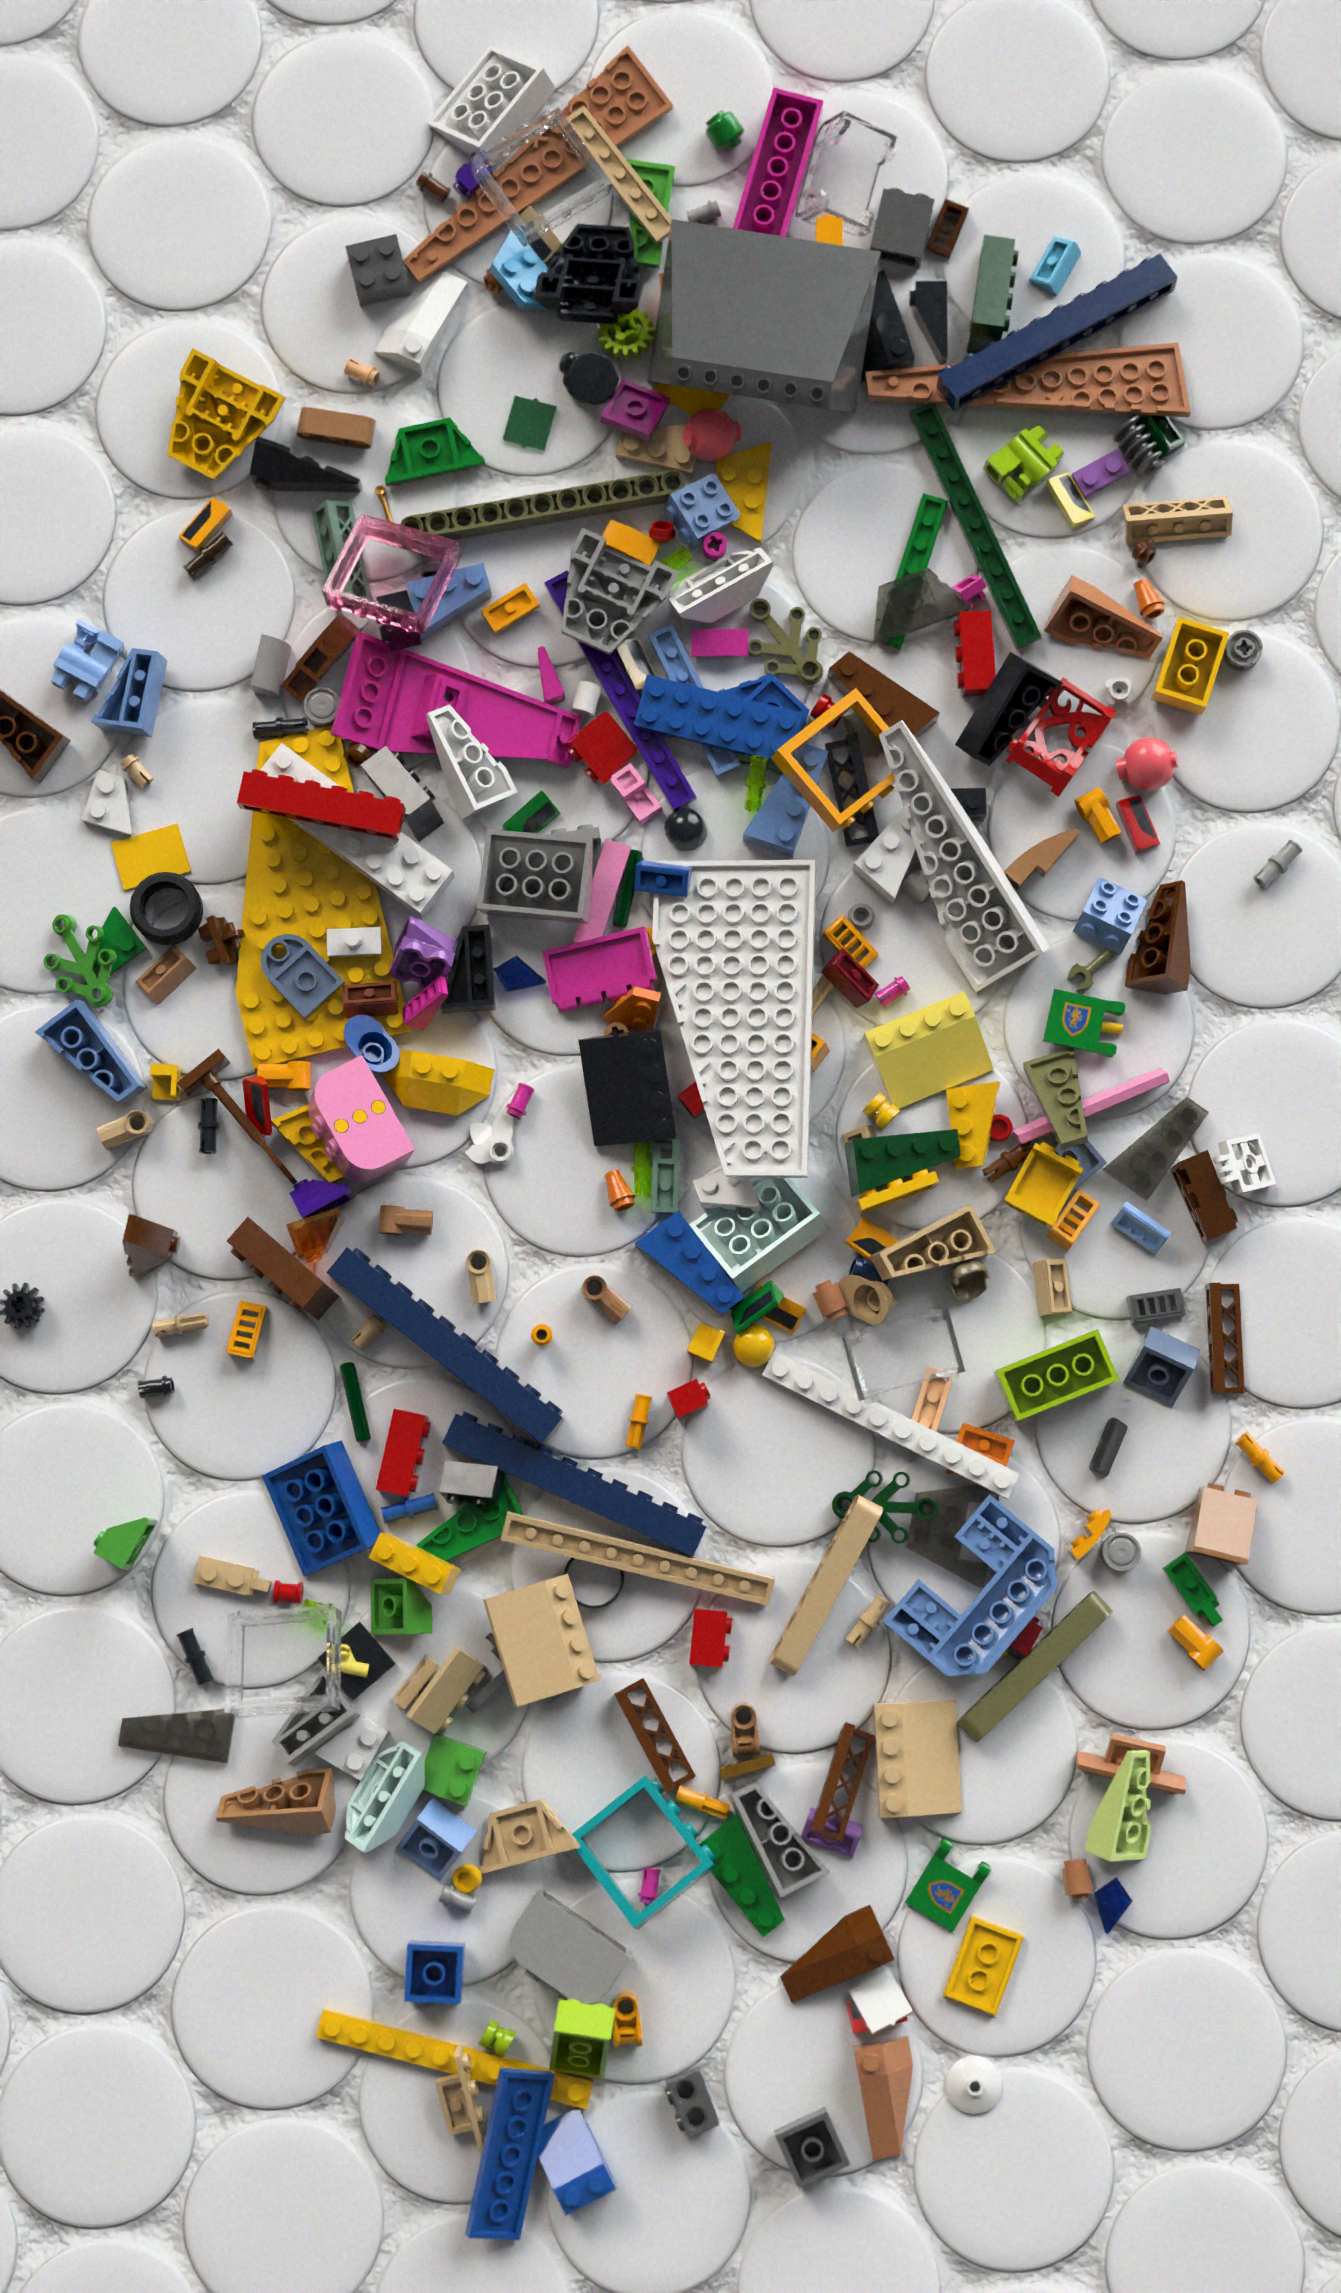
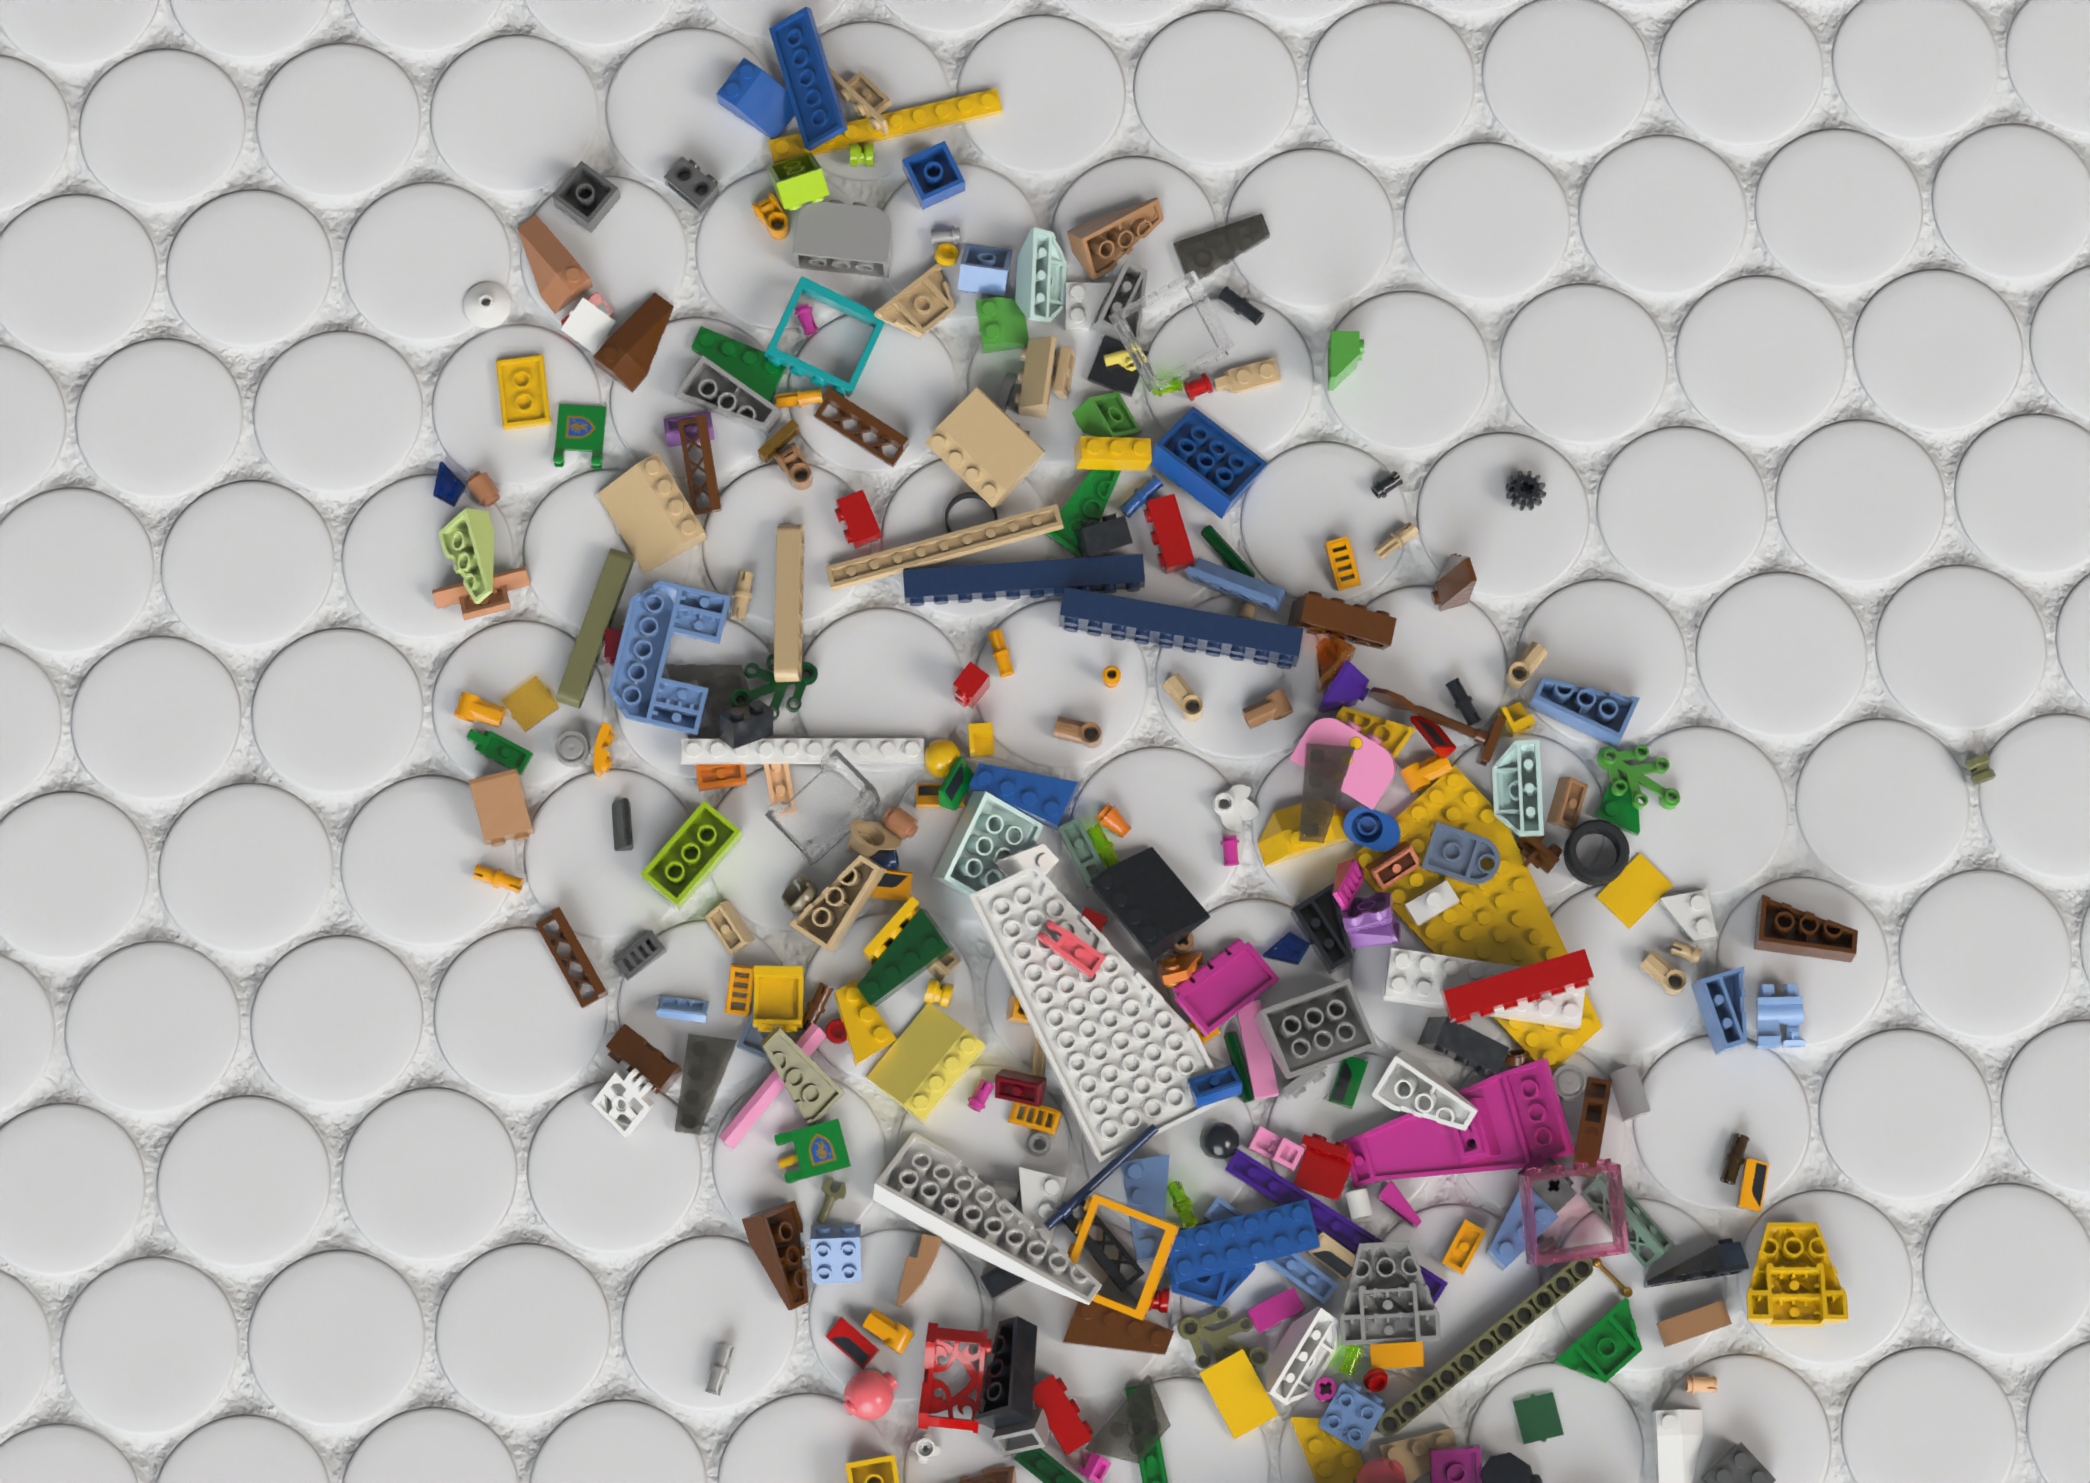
camera: 150 degrees right, 5 degrees down
(170, 762) = (1661, 971): none -> tan piece
(205, 1005) = (1519, 788): none -> light aqua wedge
(280, 728) = (1592, 1047): black pin -> none
(365, 1361) = (1236, 585): none -> medium blue fence
(400, 1100) = (1322, 782): none -> clear smoke wing
(731, 1070) = (1073, 949): none -> coral hinge
(797, 586) = (1238, 1393): none -> yellow tile
(872, 831) = (1064, 1210): none -> dark blue bar
(935, 1477) = (746, 724): none -> black brick
(1023, 645) = (1023, 1435): none -> light grey brick
(1138, 1623) = (530, 704): none -> clear yellow piece
(1162, 1366) = (611, 909): sand blue slope -> none

